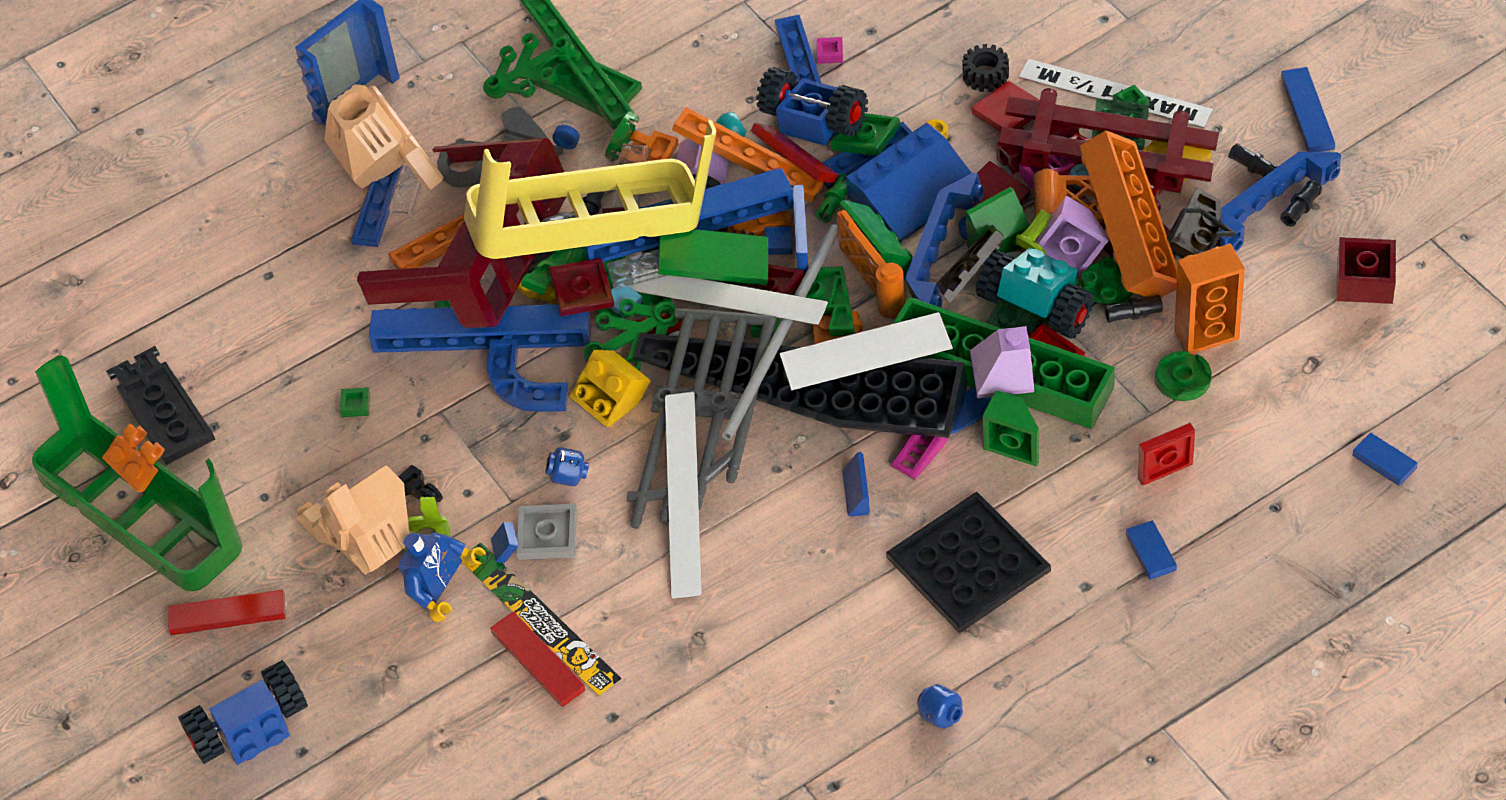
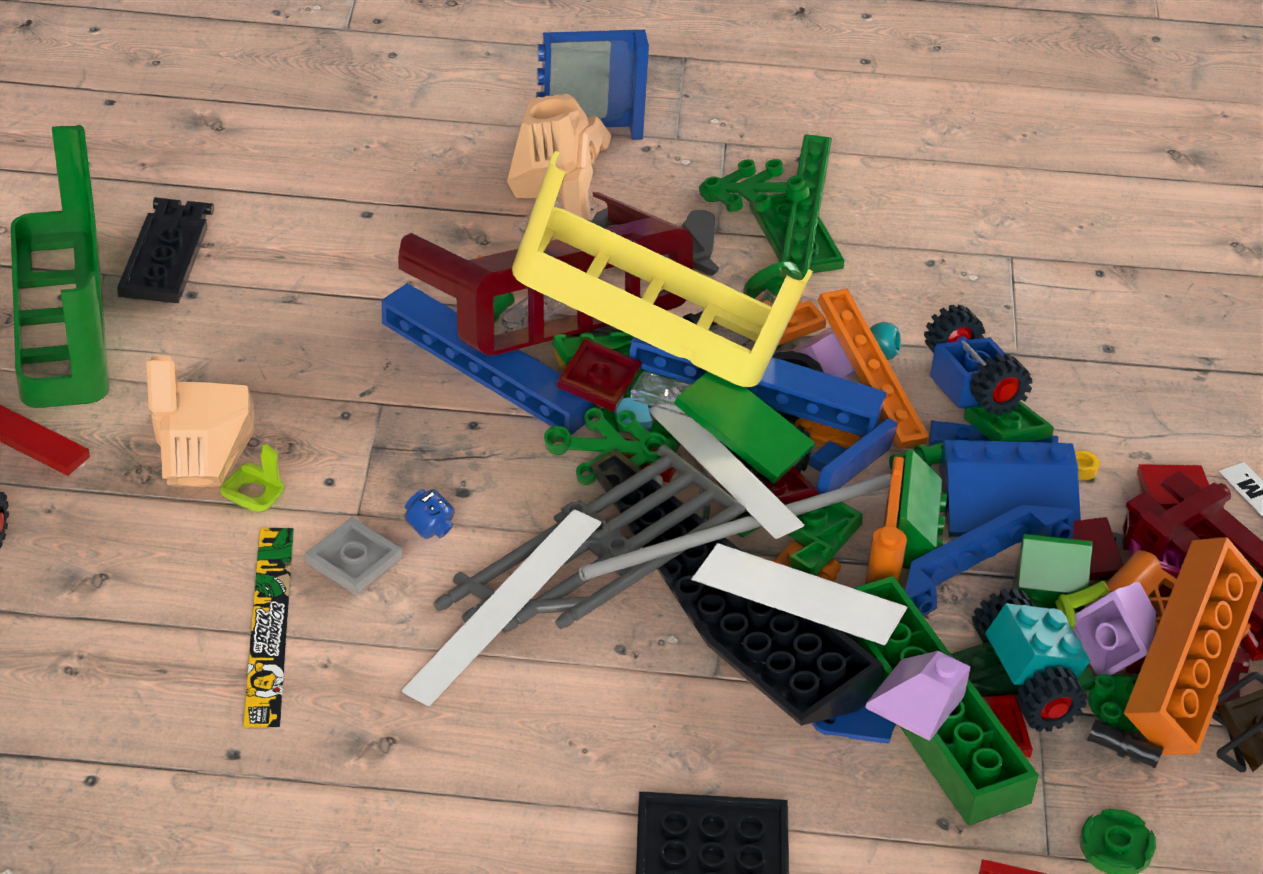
camera: 30 degrees right, 10 degrees down
(131, 464) = (83, 258): orange plate -> none
(355, 402) = (320, 349): green tile -> none
(373, 212) = (498, 223): blue tile -> none
(418, 488) = (290, 442): black piece -> none
(430, 566) = (218, 510): blue torso -> none
(504, 542) = (307, 538): blue tile -> none
(517, 390) = (460, 422): blue plate -> none
(537, 659) = (225, 657): red tile -> none
(566, 136) = (728, 260): blue tile -> none
(609, 387) = (542, 475): yellow slope -> none
(794, 153) = (921, 396): red tile -> none
(796, 48) = (1017, 317): blue plate -> none
(830, 50) = (1050, 339): dark pink tile -> none
(856, 486) = (677, 715): blue slope -> none
(926, 457) = (781, 733): dark pink slope -> none
(966, 266) = (960, 596): dark brown wing -> none
(985, 57) = (1182, 428): black tyre -> none
(1011, 429) = (872, 759): green slope -> none
(1209, 298) = (1200, 773): orange brick -> none

